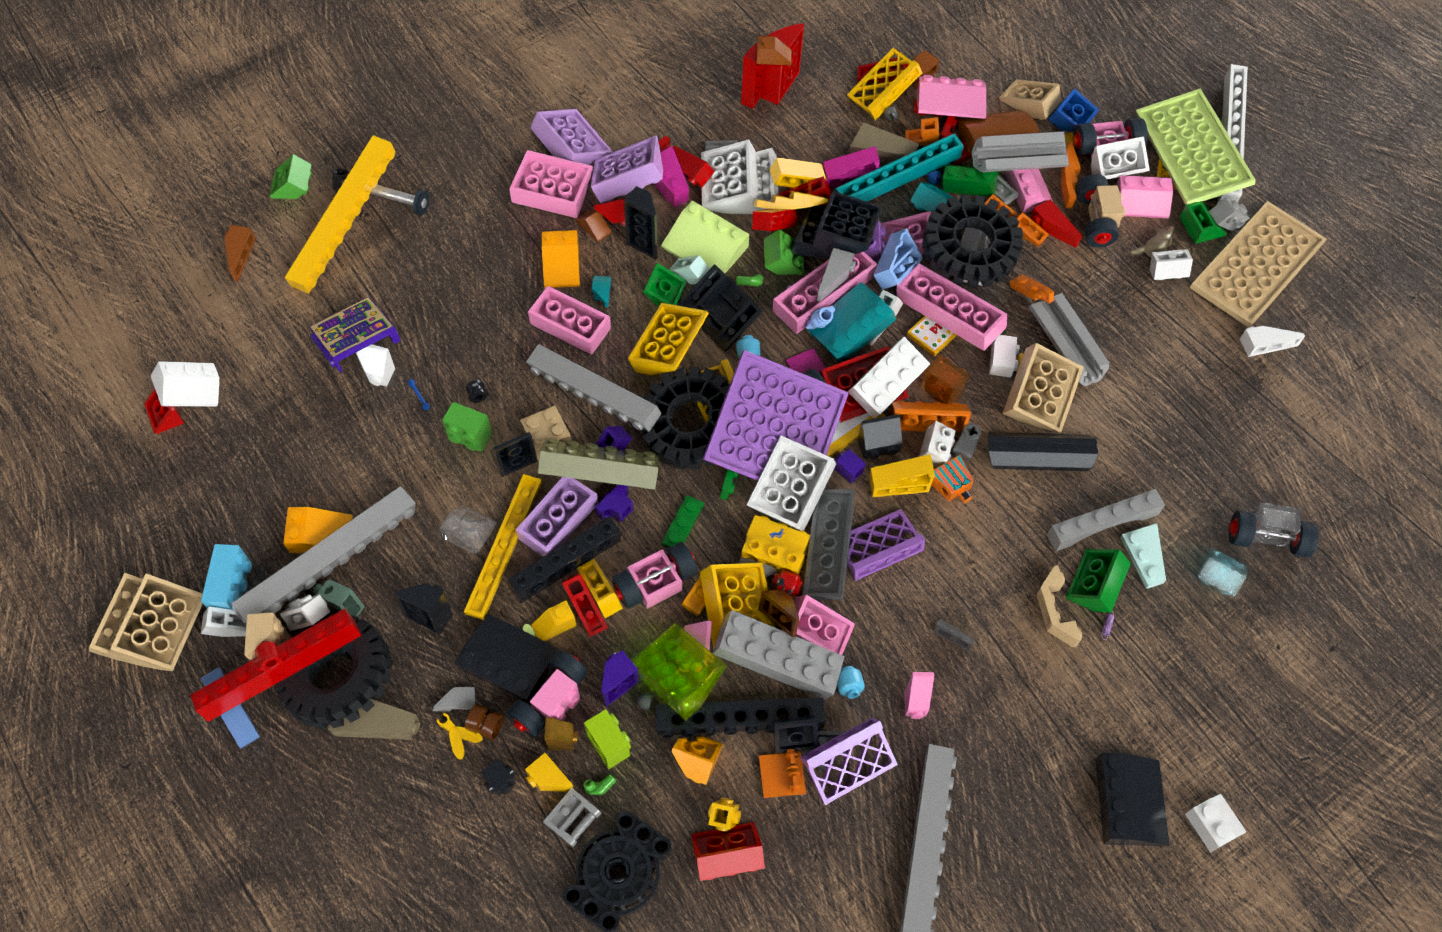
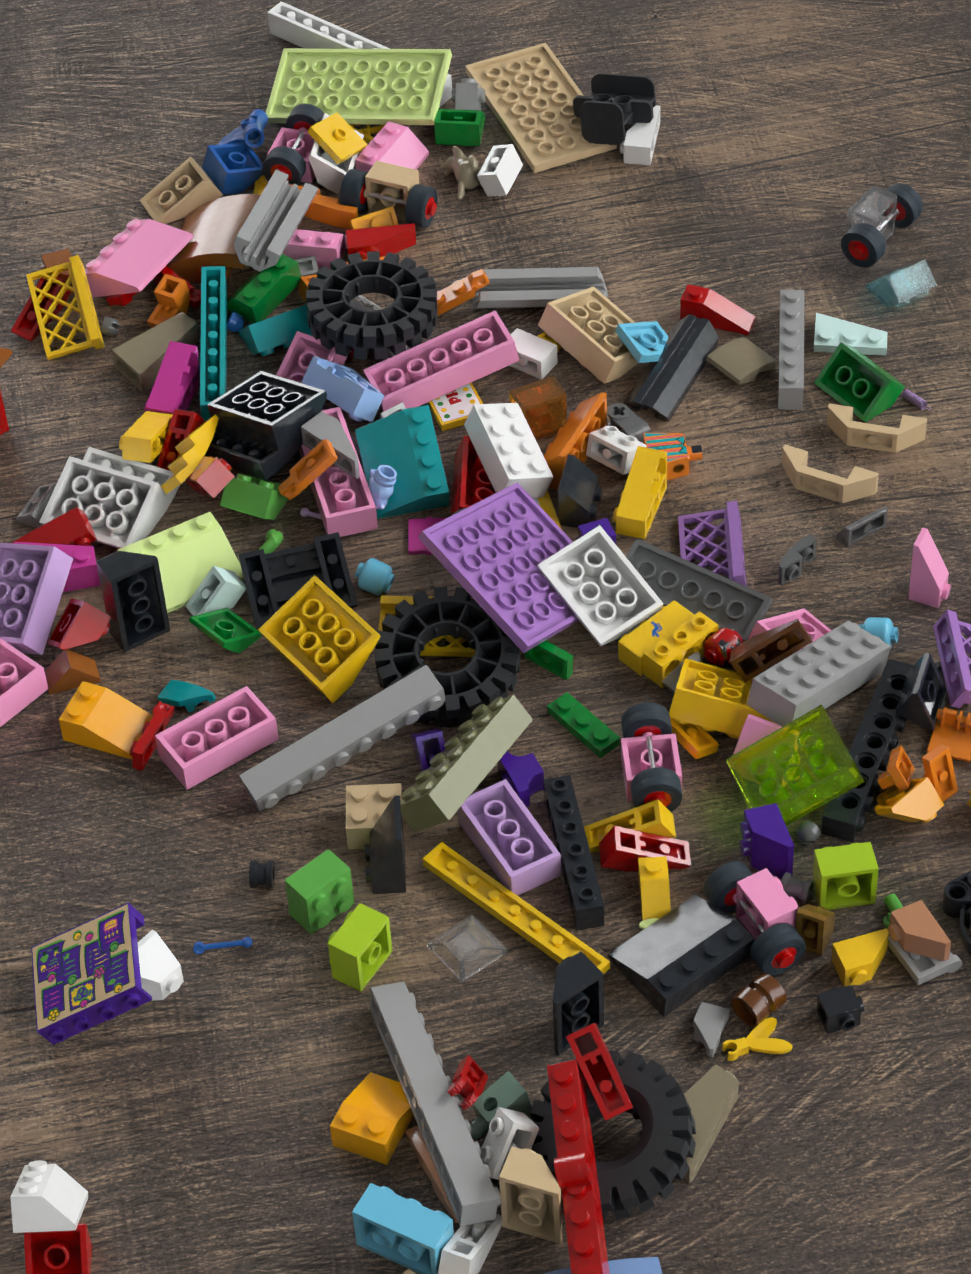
camera: 60 degrees left, 15 degrees down
(347, 571) = (468, 1082): none -> red hinge
(360, 638) = (599, 1071): none -> red slope
(432, 467) = (360, 946): none -> lime brick
(563, 285) = (144, 748): none -> red hinge
(576, 806) = (919, 931): none -> nougat slope
(592, 708) = (797, 888): none -> dark grey bush
(719, 741) = (898, 770): none -> orange hinge
(728, 771) = (940, 771): none -> orange hinge
(806, 269) = (308, 469): none -> orange hinge
(888, 599) = (801, 553): none -> dark grey slope
(990, 614) = (859, 484): none -> tan slope
(1048, 419) = (643, 340): none -> medium azure plate
(1074, 214) = (379, 218): none -> light orange plate
(1077, 491) = (741, 360): none -> dark tan slope
(1112, 106) = (250, 130): none -> blue pin
(1116, 455) = (715, 308): none -> red slope
(1126, 154) = (337, 138): none -> yellow plate
(1281, 306) = (612, 104): none -> black piece

